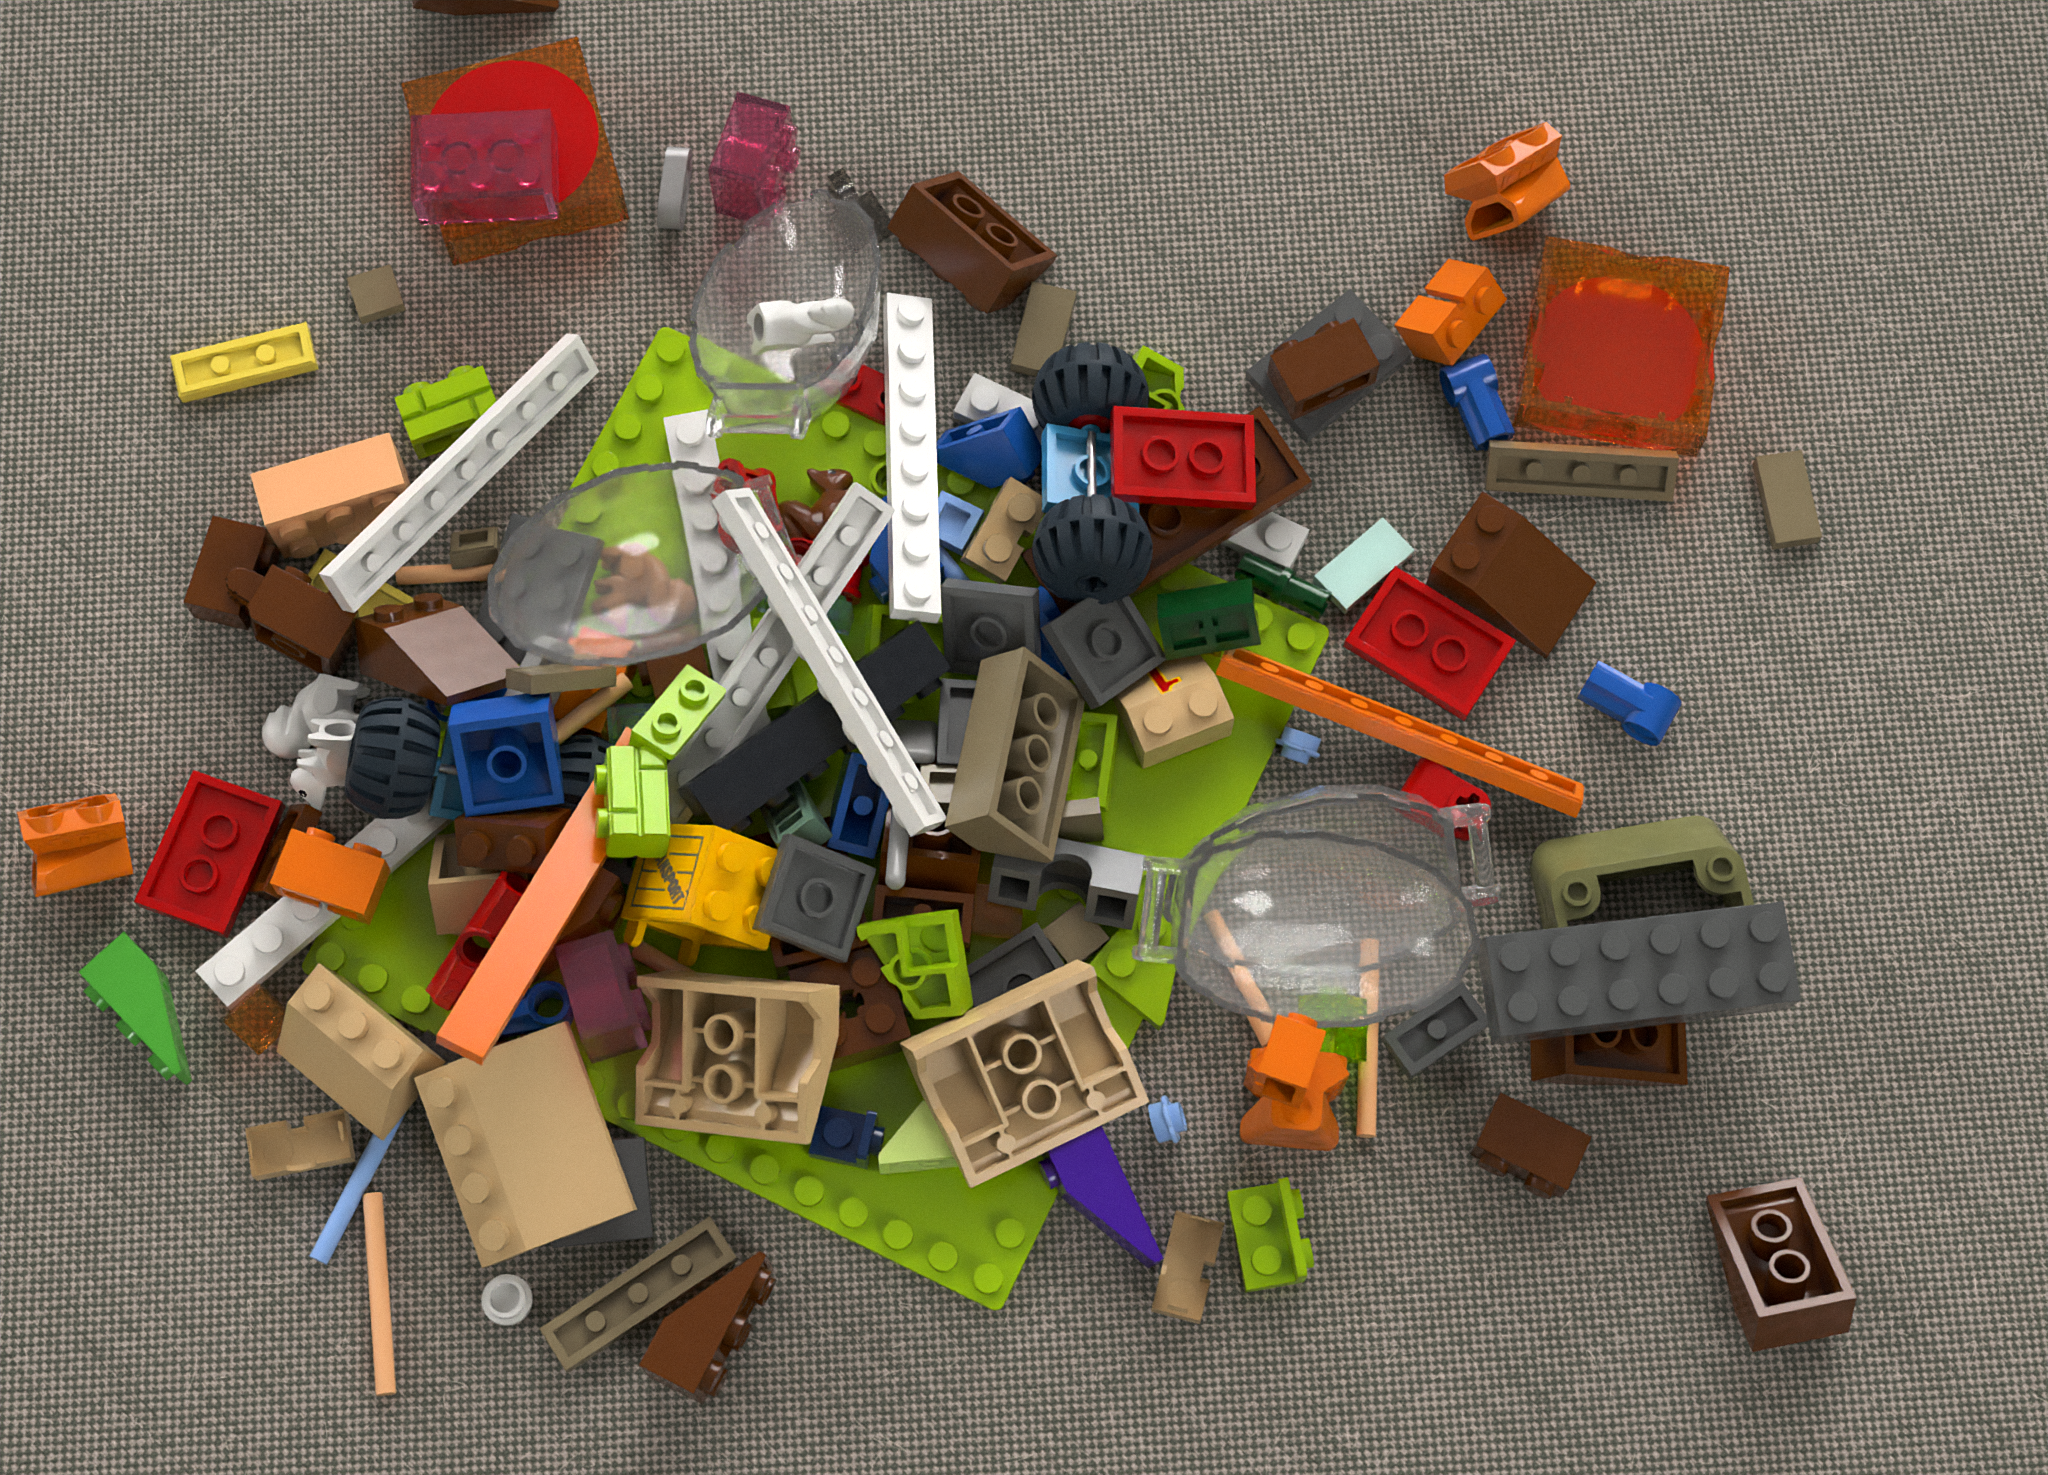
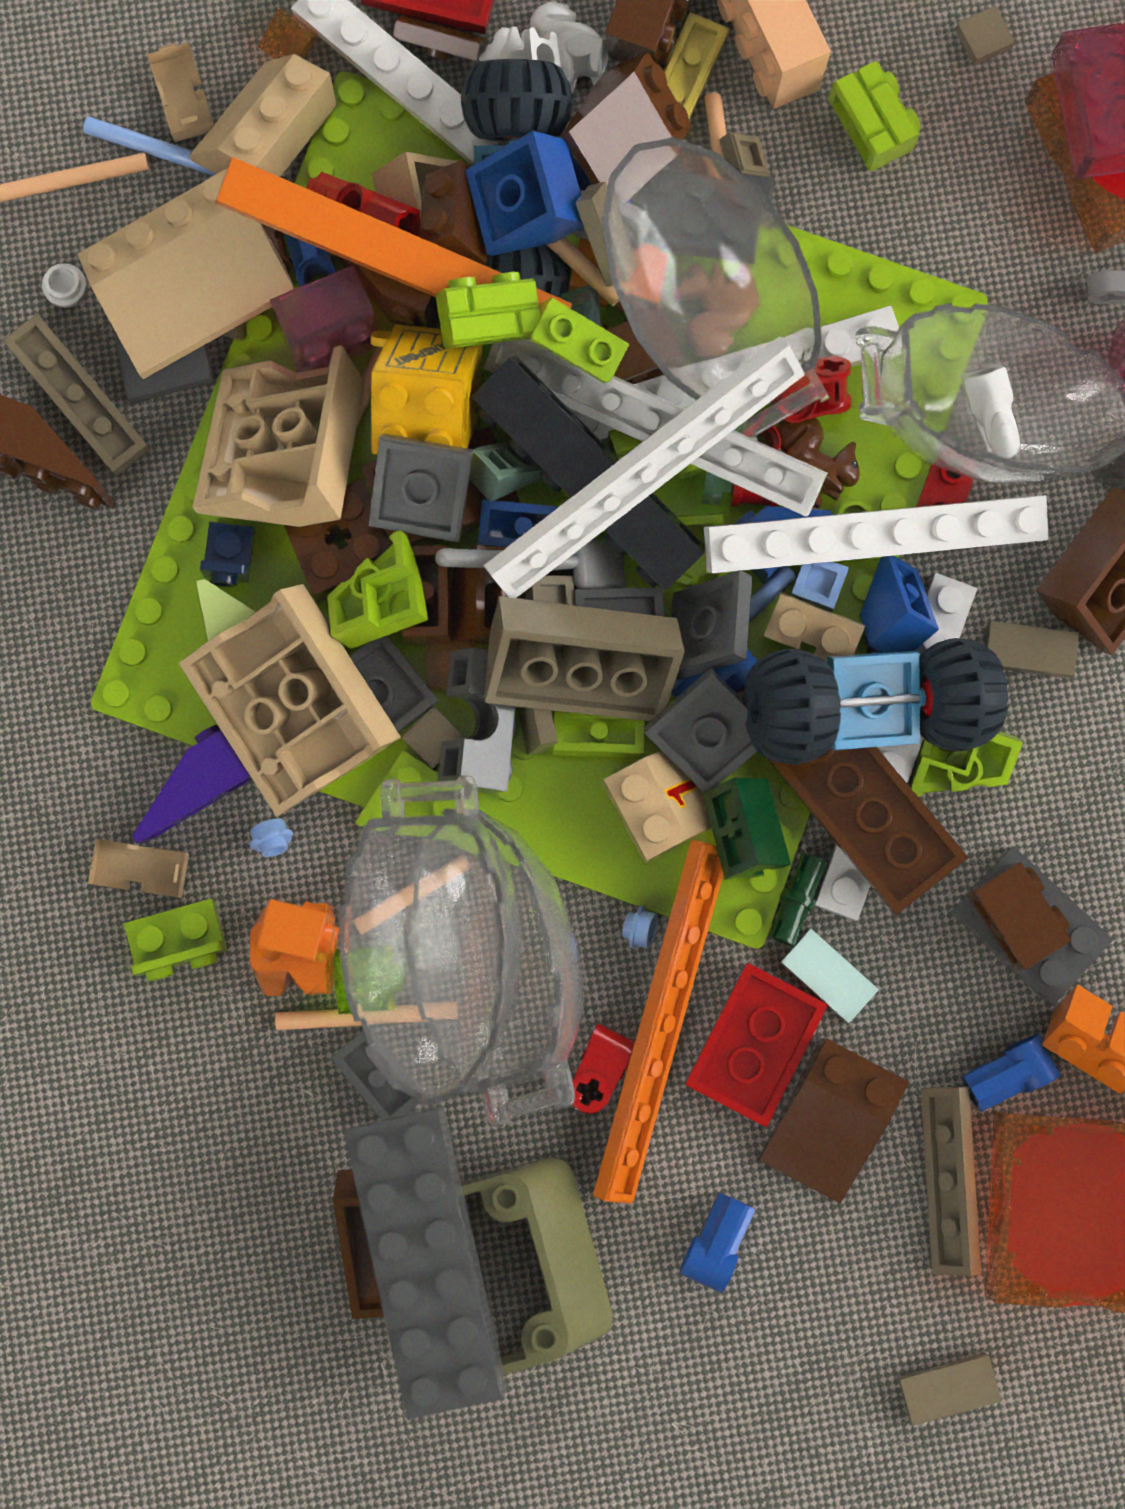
camera: 80 degrees right, 10 degrees up
(319, 871) = (408, 69): orange piece -> none
(458, 473) = (805, 124): white plate -> none
(1182, 457) = (899, 785): red plate -> none
(1530, 1147) = (274, 1172): reddish brown brick -> none
(1780, 1265) = (187, 1414): reddish brown slope -> none

